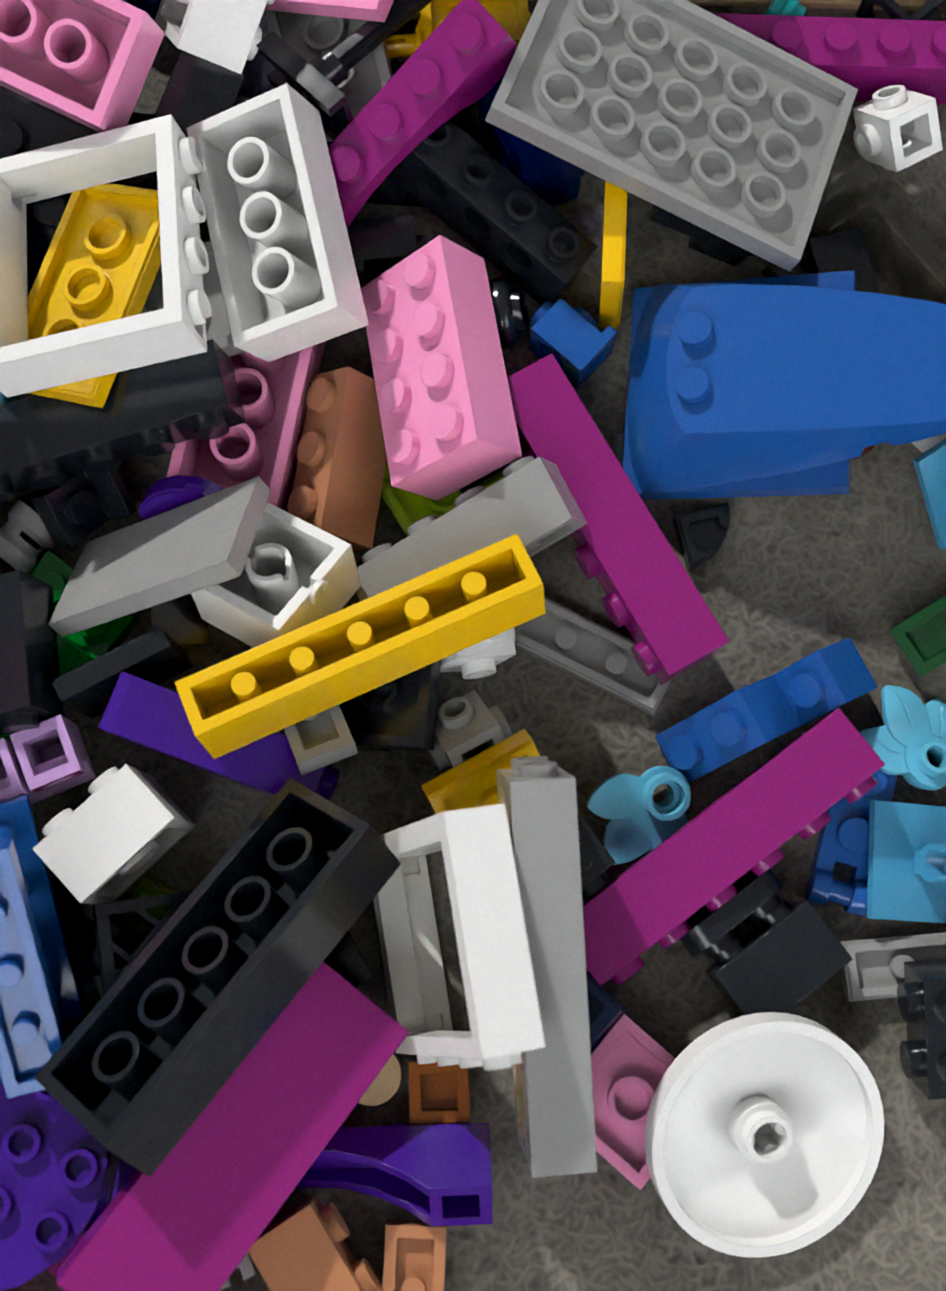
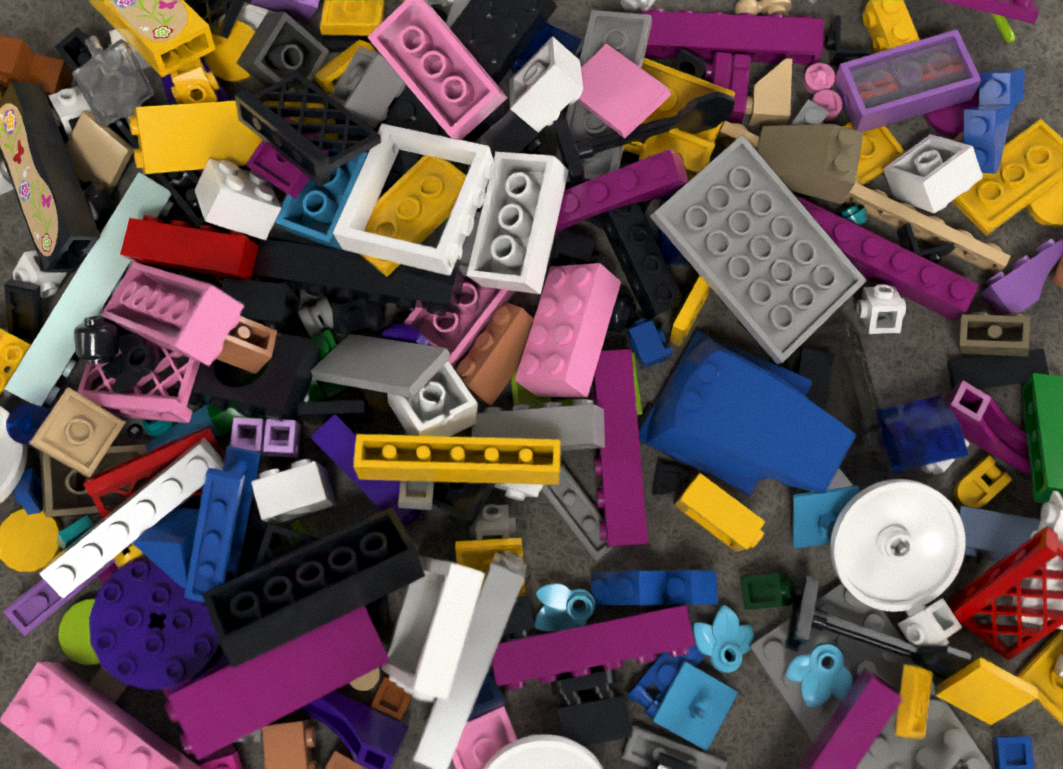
camera: 30 degrees right, 0 degrees up
(815, 544) = (720, 514): none -> yellow window

